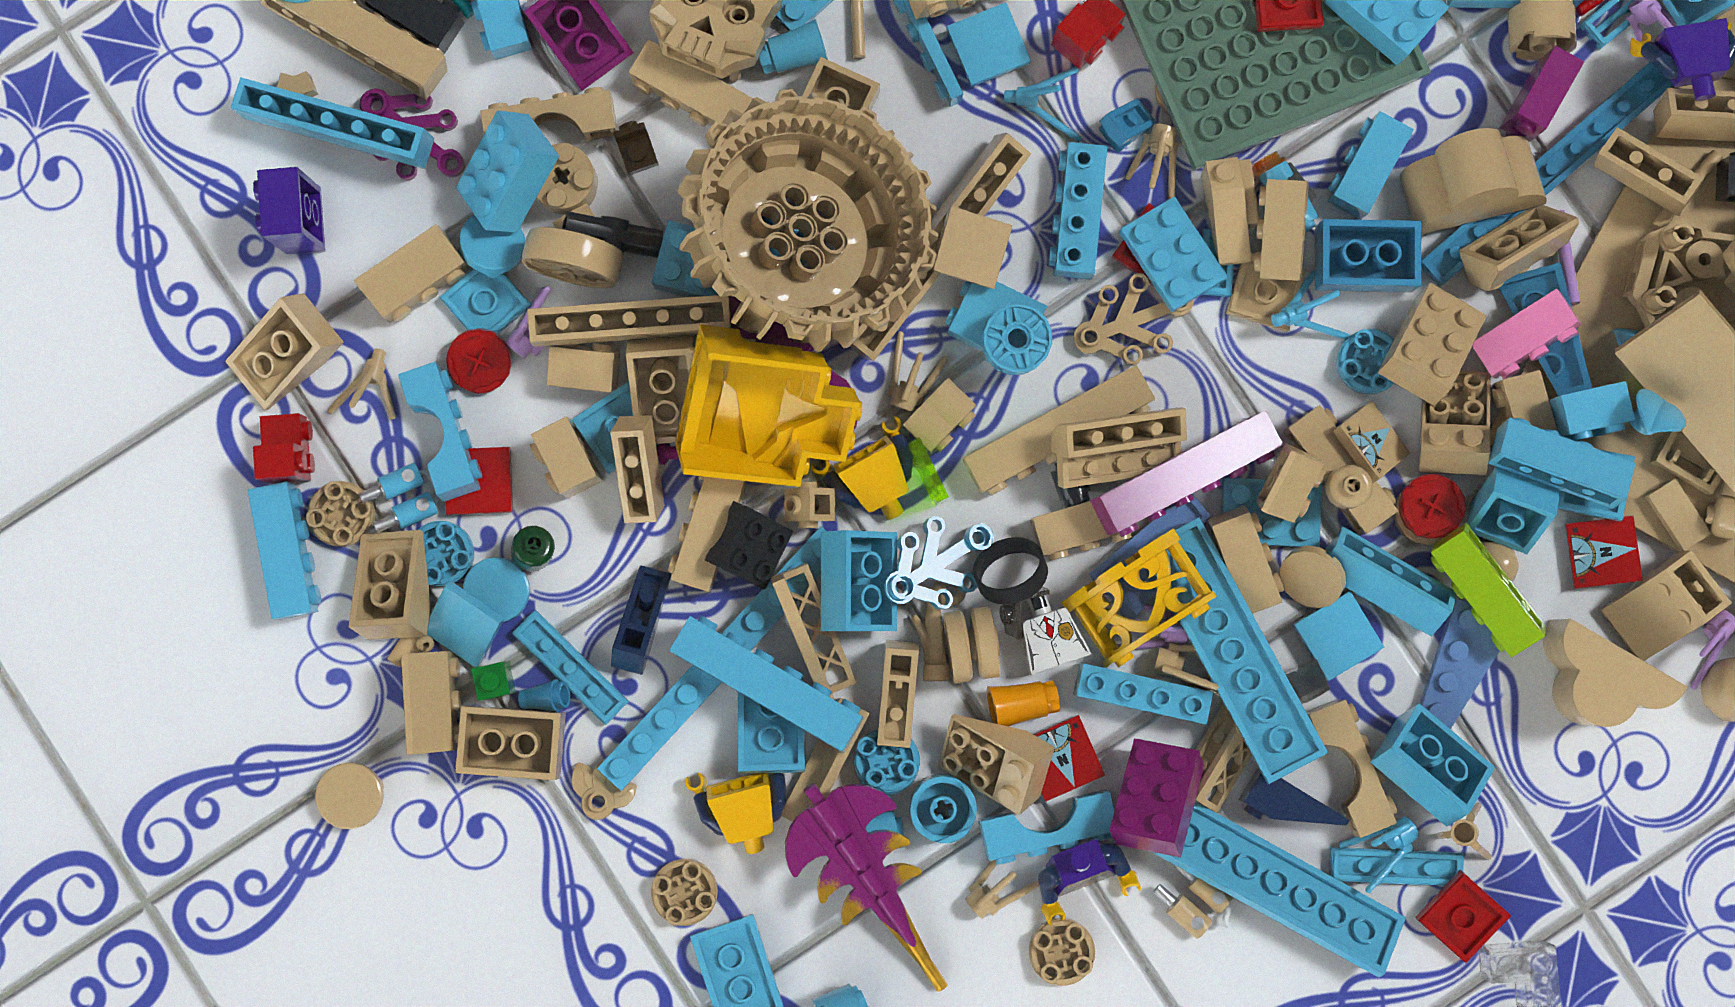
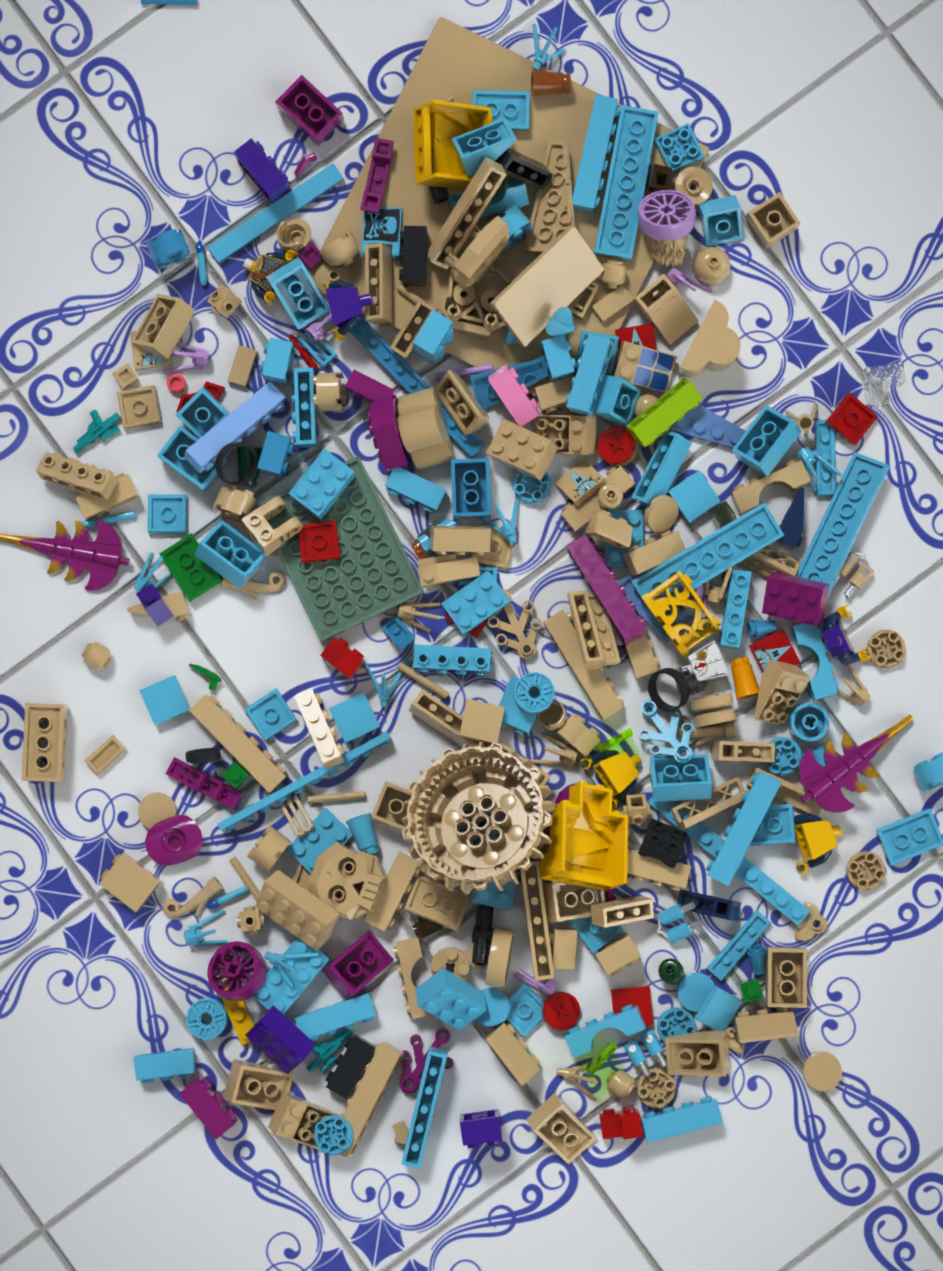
camera: 85 degrees left, 0 degrees up
(350, 453) = (620, 1084): none -> tan head
(392, 416) = (599, 1059): none -> clear neon green tile
(600, 570) = (673, 914): none -> medium azure piece
(664, 162) = (436, 903): none -> tan tile
(973, 373) = (552, 717): none -> tan hair
(1045, 161) = (424, 681): none -> tan bar
(1108, 735) = (760, 627): none -> dark azure cone
(1480, 104) = (386, 433): none -> magenta brick
(1568, 563) = (644, 366): none -> slope
(1635, 199) = (433, 337): none -> medium azure brick

